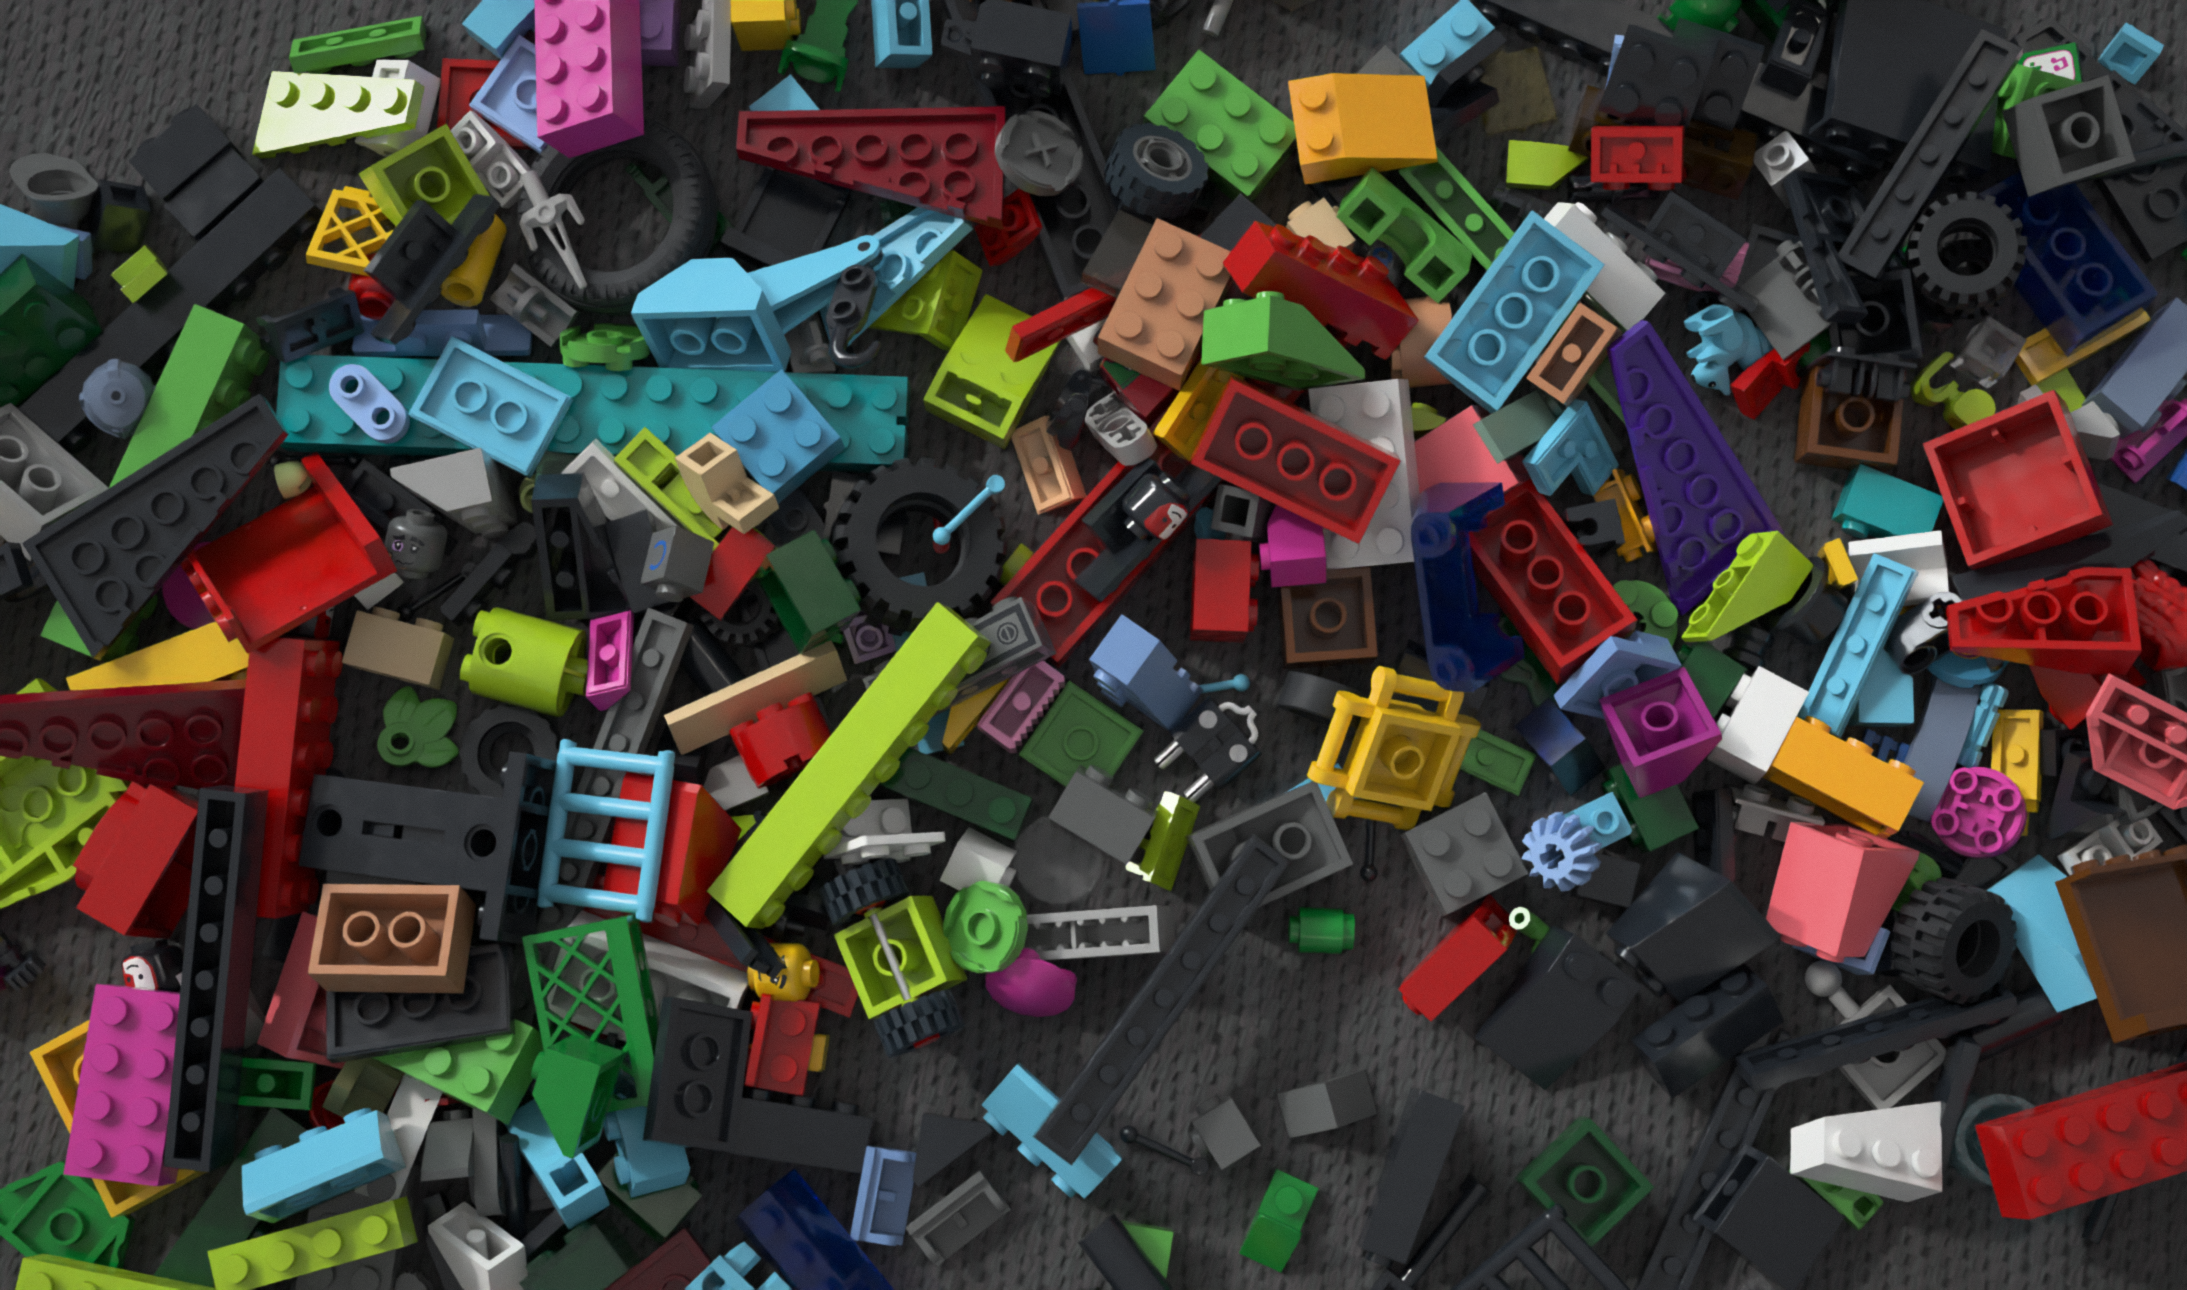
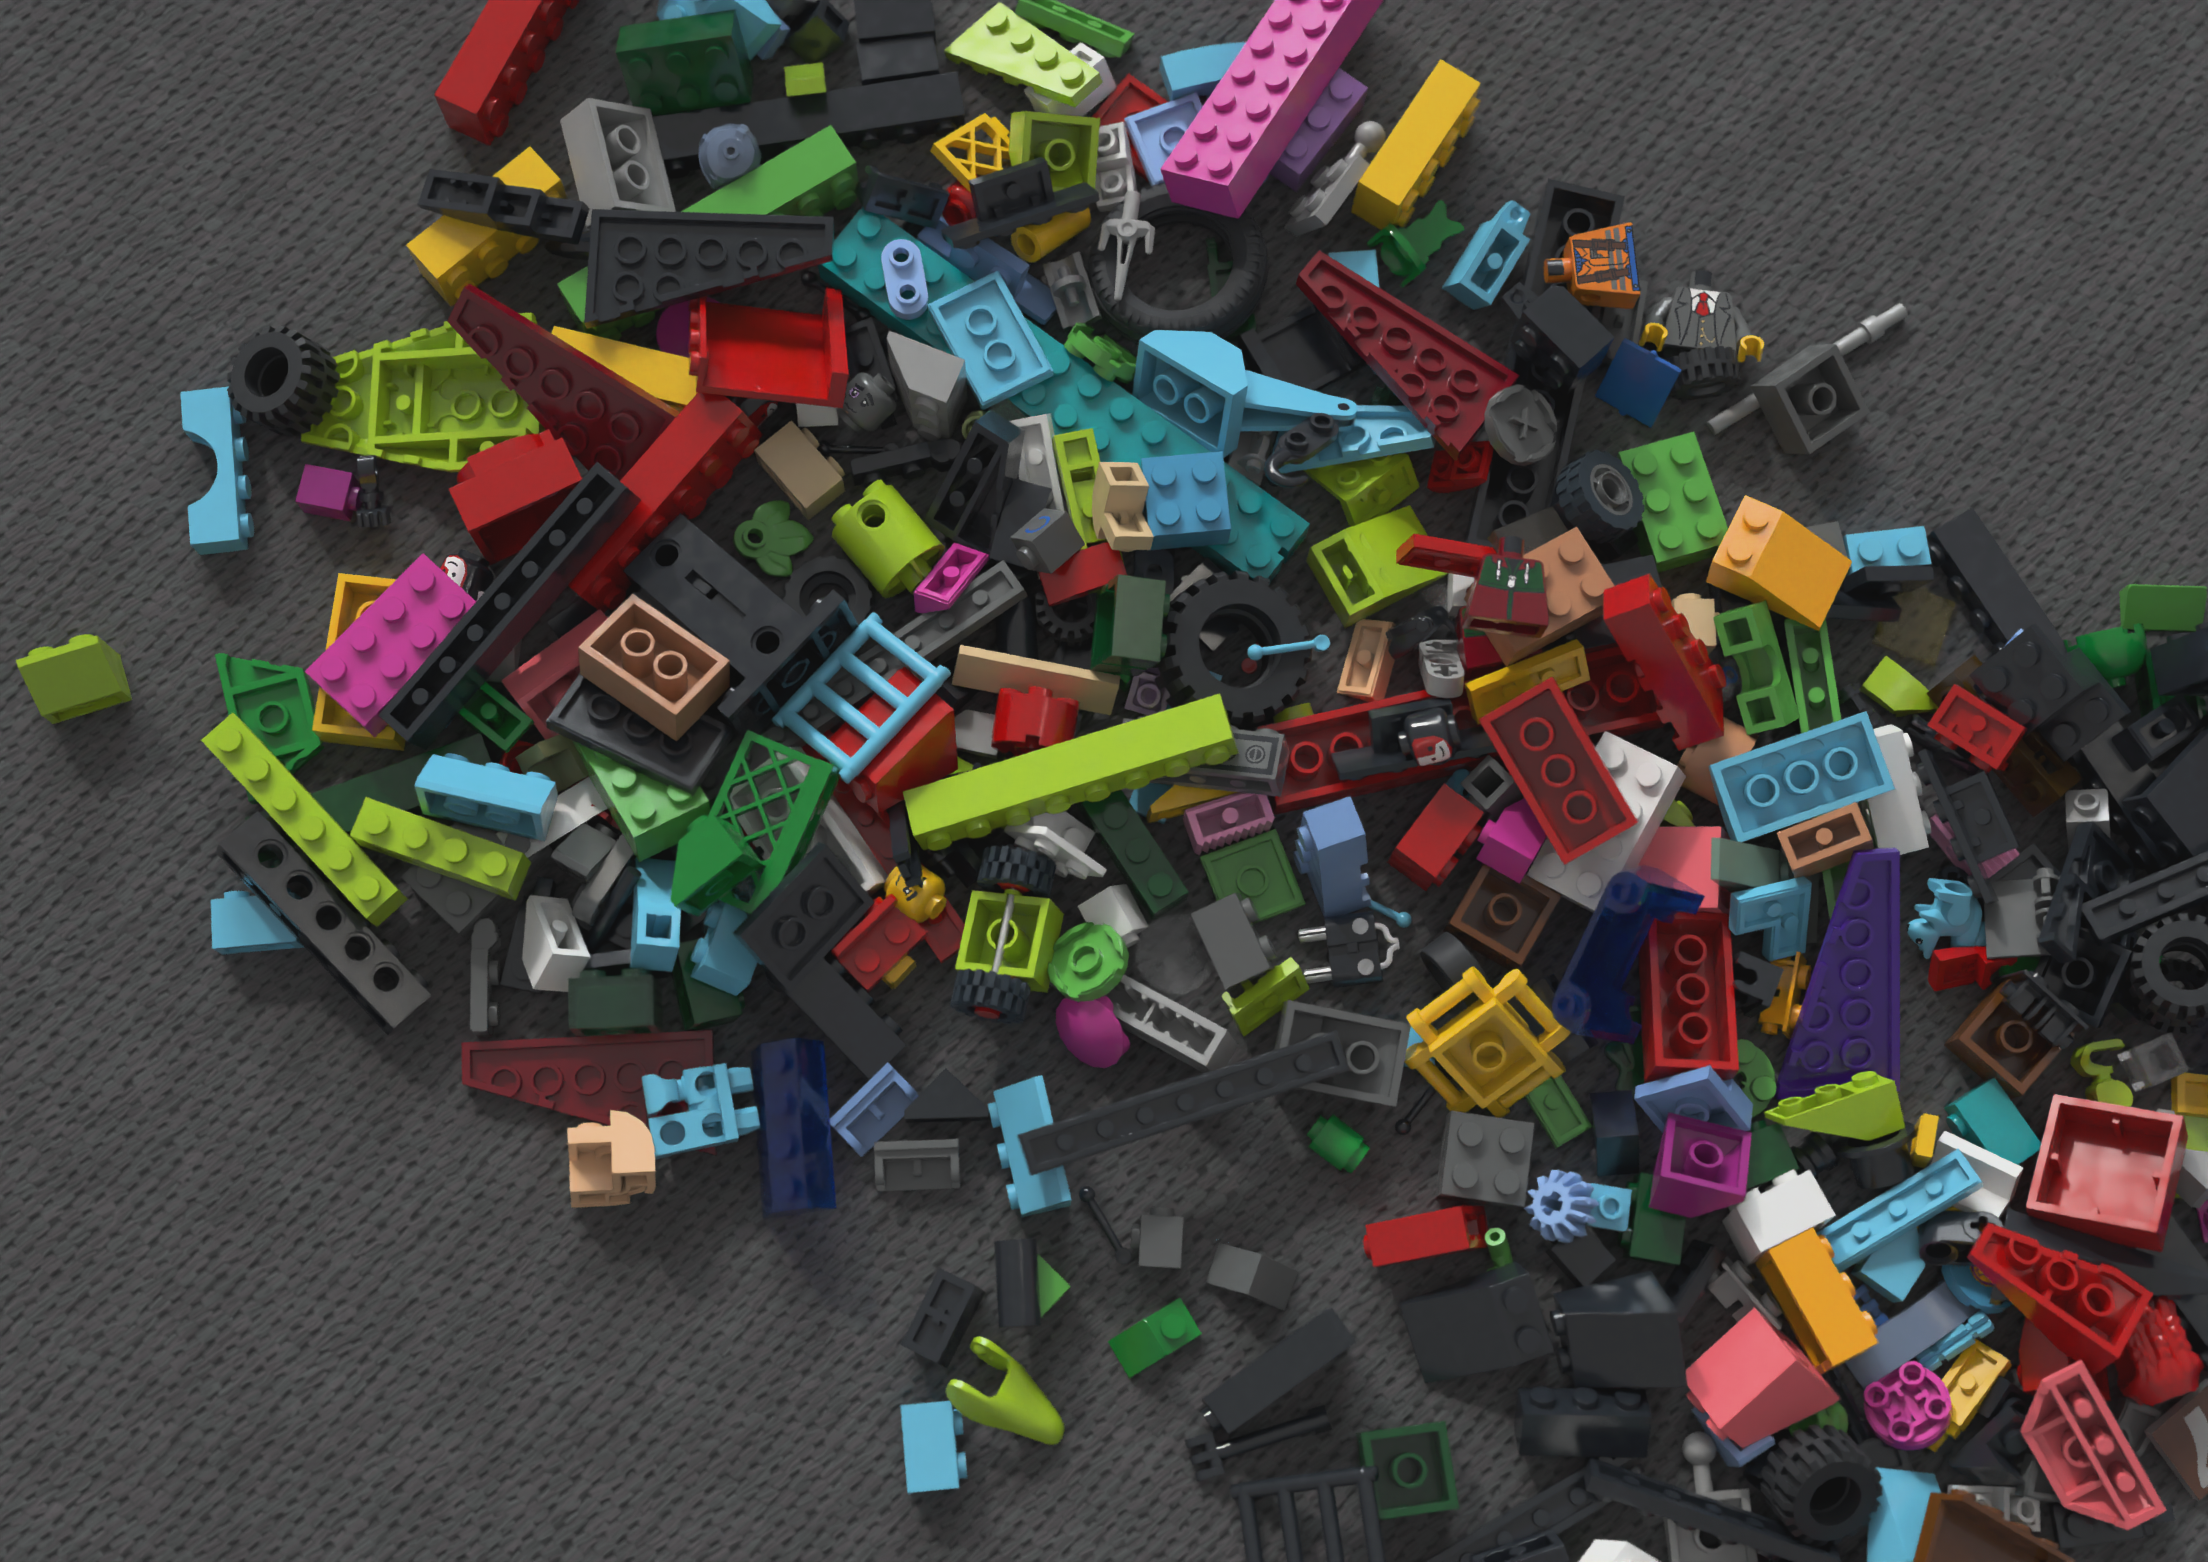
camera: 30 degrees right, 5 degrees down
(291, 478) = (809, 298): yellowish green hinge -> none
(1139, 327) = (1508, 593): none -> dark red torso
(1275, 344) = (1602, 677): bright green slope -> none

